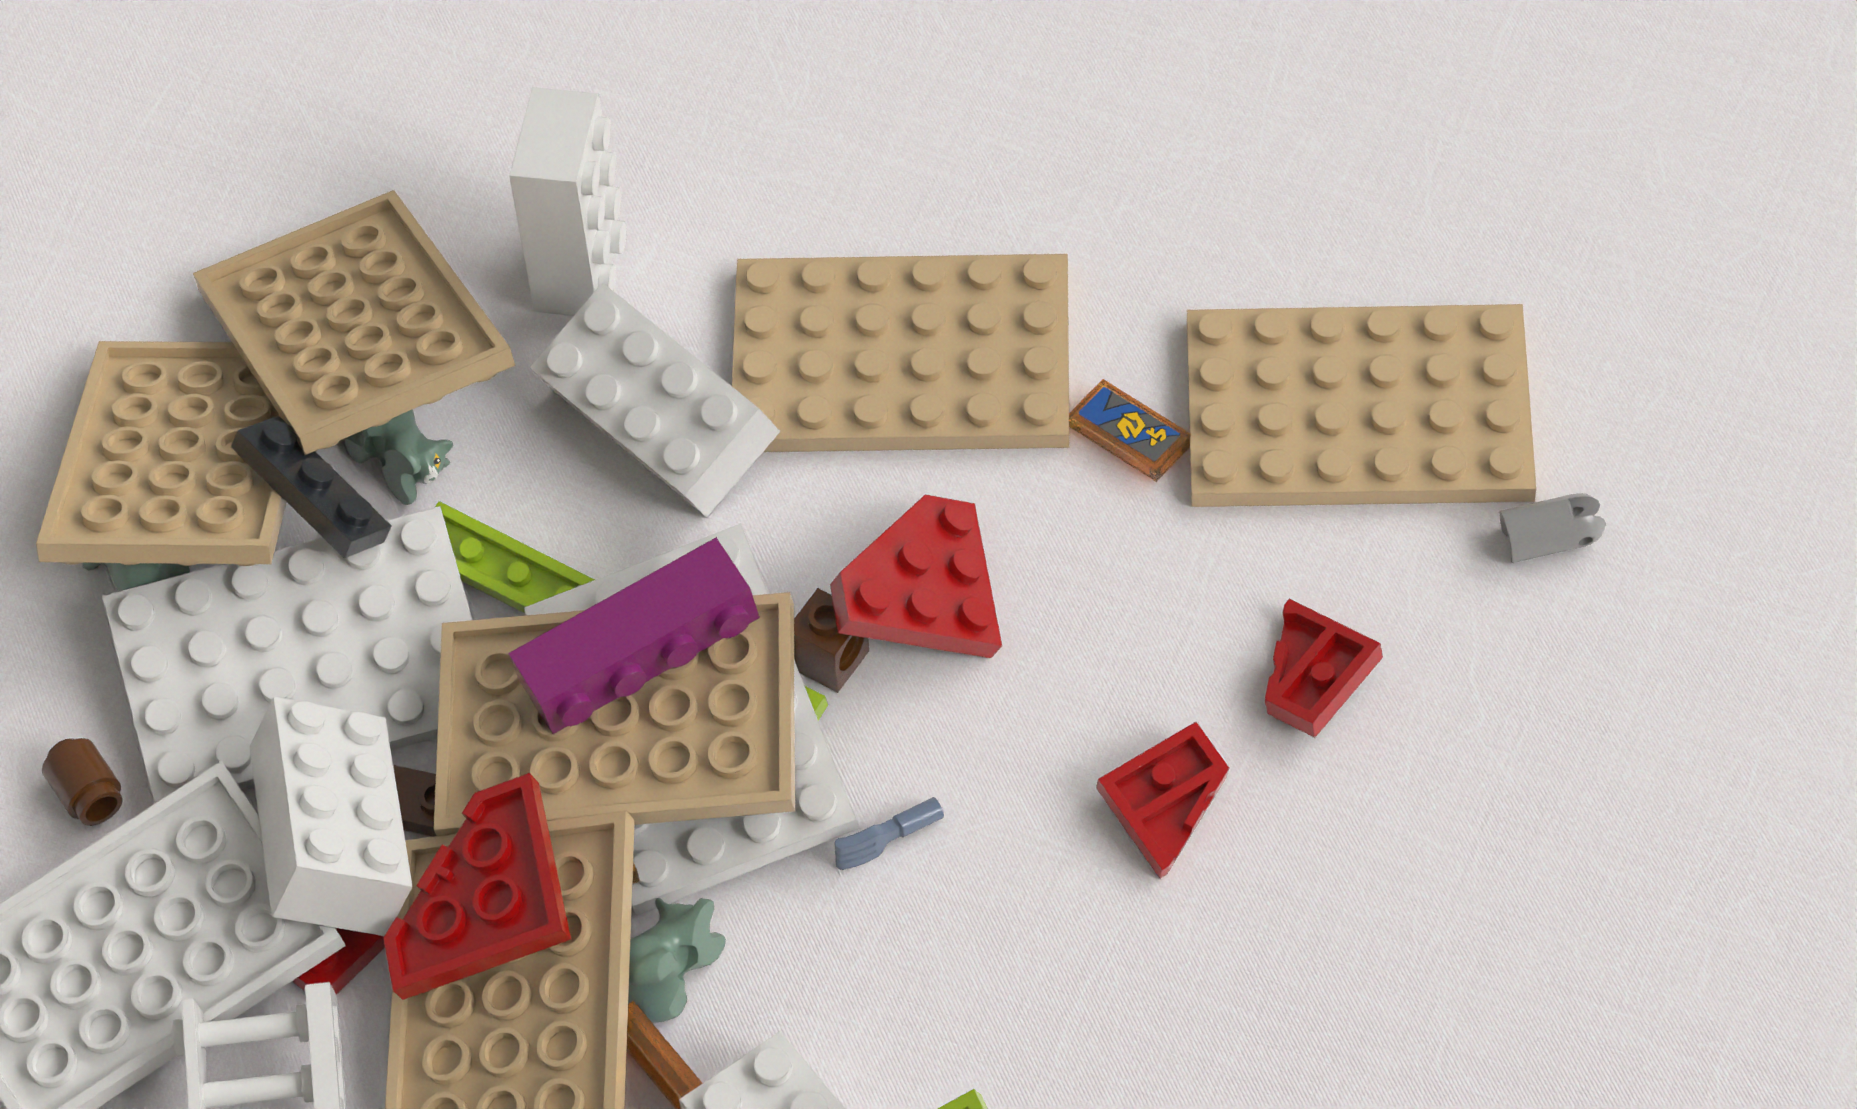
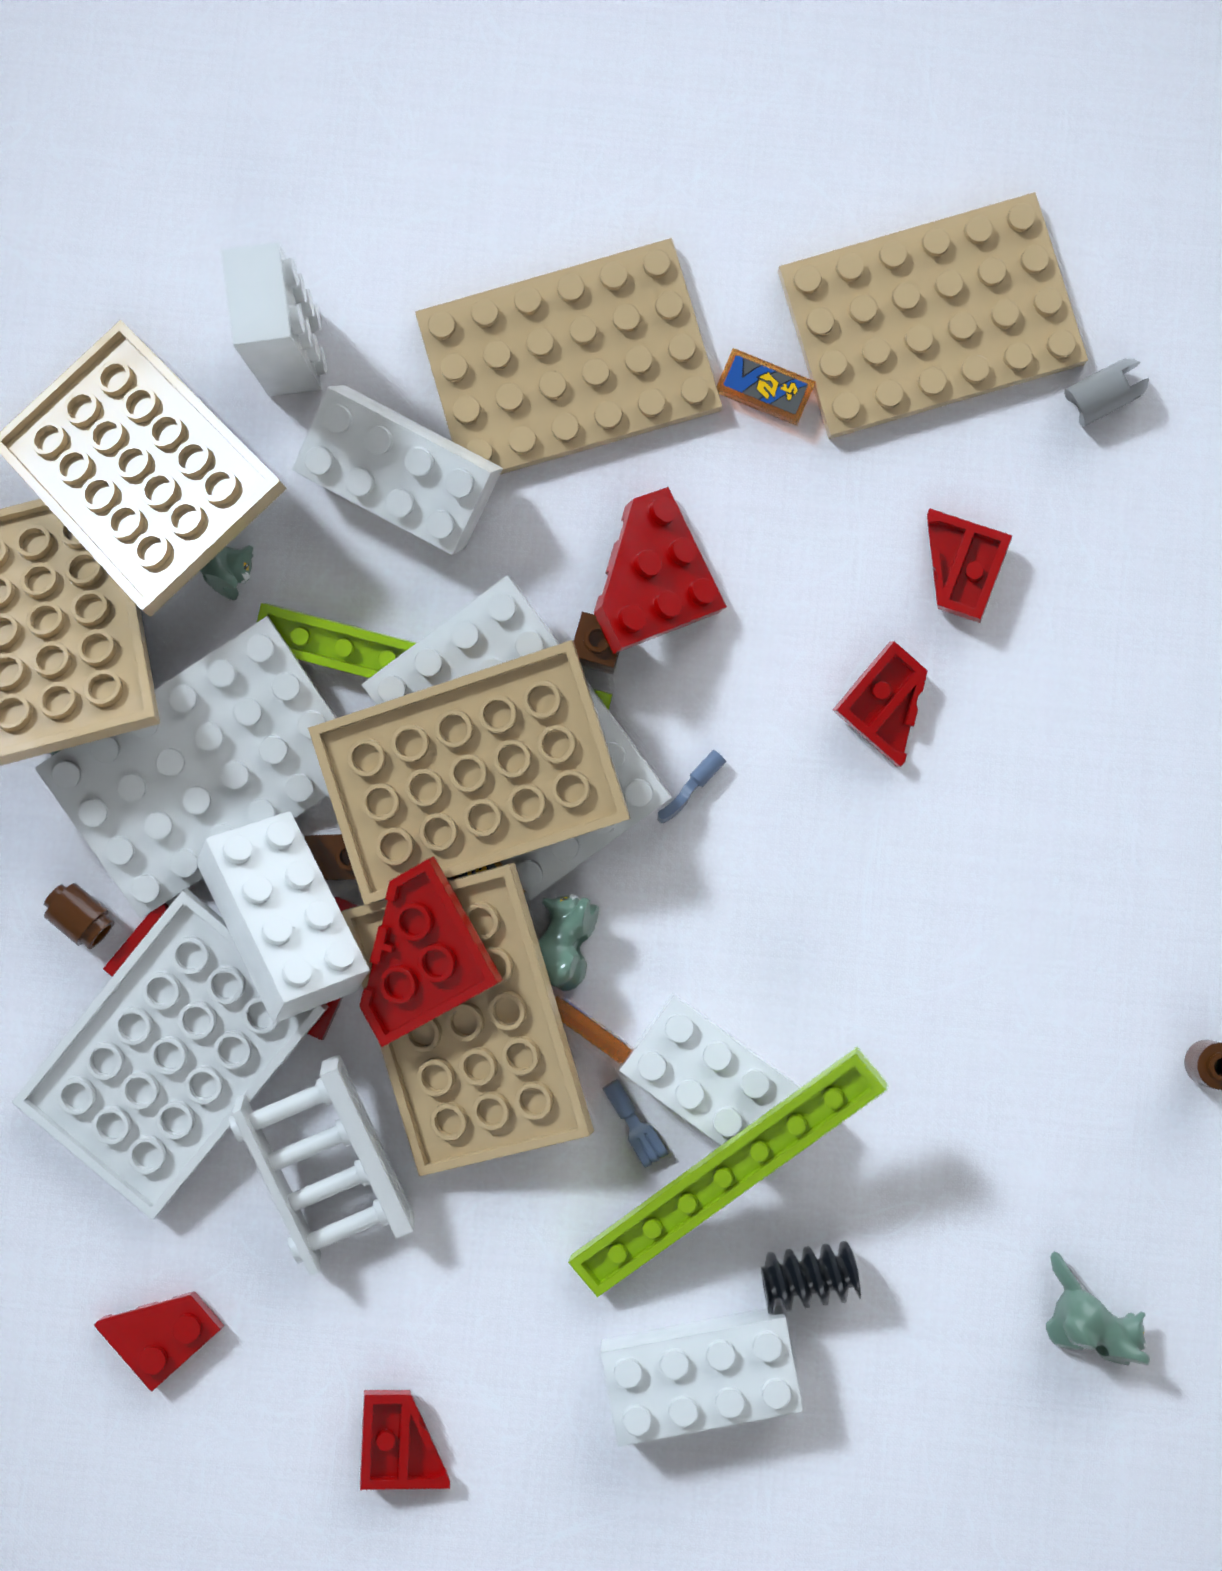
camera: 15 degrees left, 30 degrees up
(311, 487) = (164, 641): black plate -> none
(635, 636) = (467, 717): magenta brick -> none

